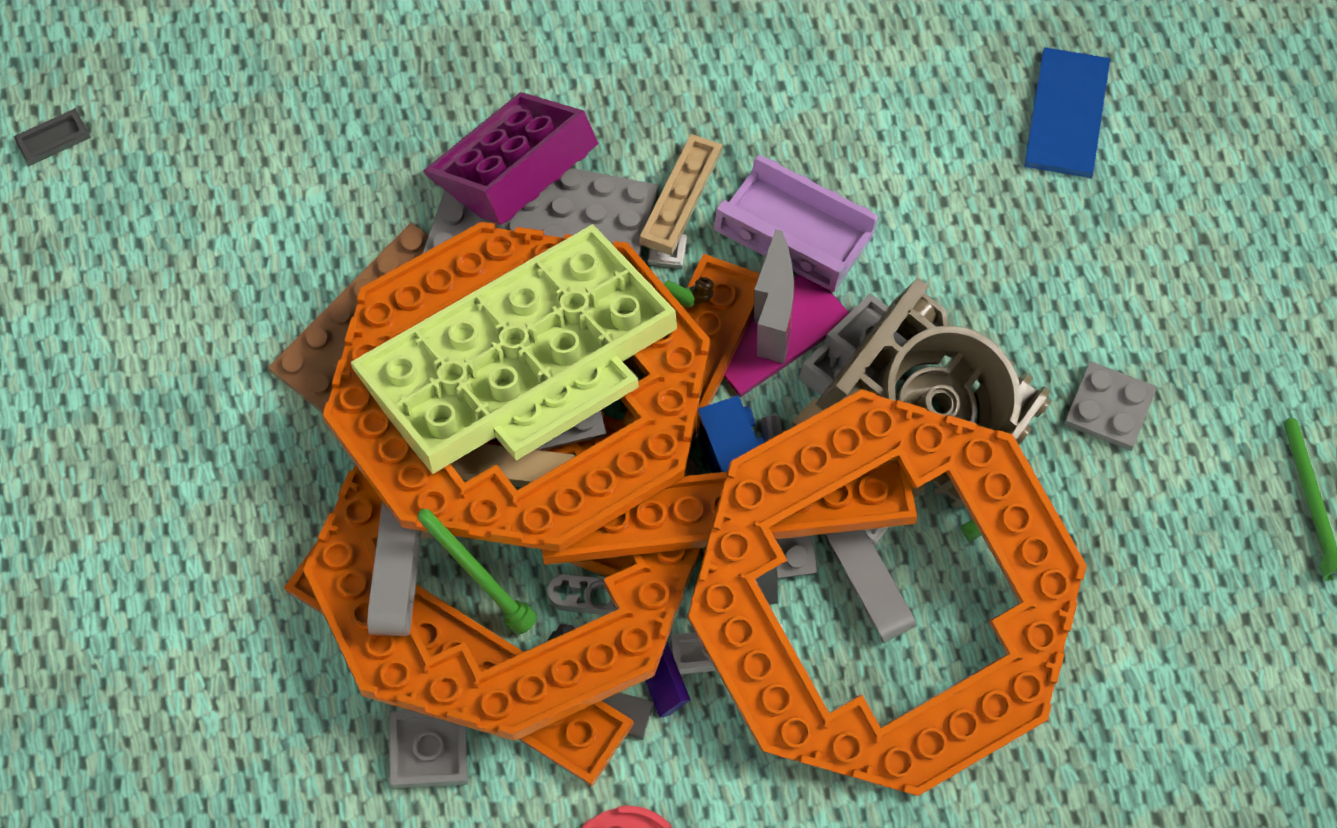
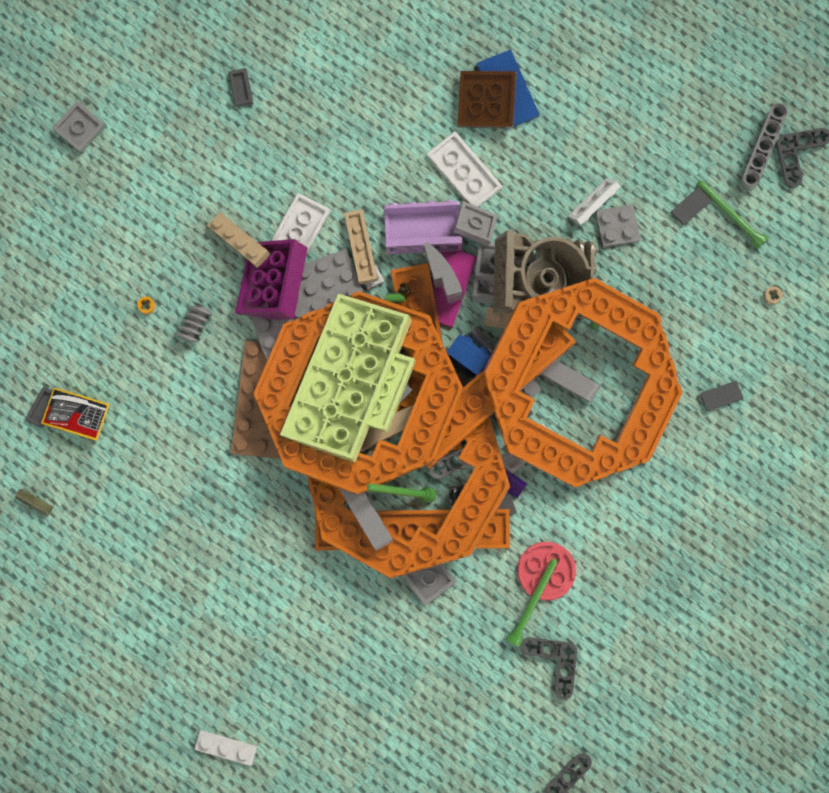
camera: 30 degrees left, 15 degrees up
(89, 172) = (75, 414): none -> slope
(297, 87) = (140, 305): none -> light orange bush
(354, 150) = (193, 323): none -> light grey piece
(505, 75) = (238, 240): none -> tan plate
(623, 113) = (302, 221): none -> white tile
(880, 262) = (475, 223): none -> light grey plate
(919, 186) = (464, 170): none -> white tile
(1023, 102) = (486, 99): none -> reddish brown plate
(1095, 346) = (594, 201): none -> white plate
(1112, 771) = (721, 396): none -> dark grey tile
(1252, 447) = (690, 206): none -> dark grey tile
(1294, 660) = (778, 294): none -> tan bush

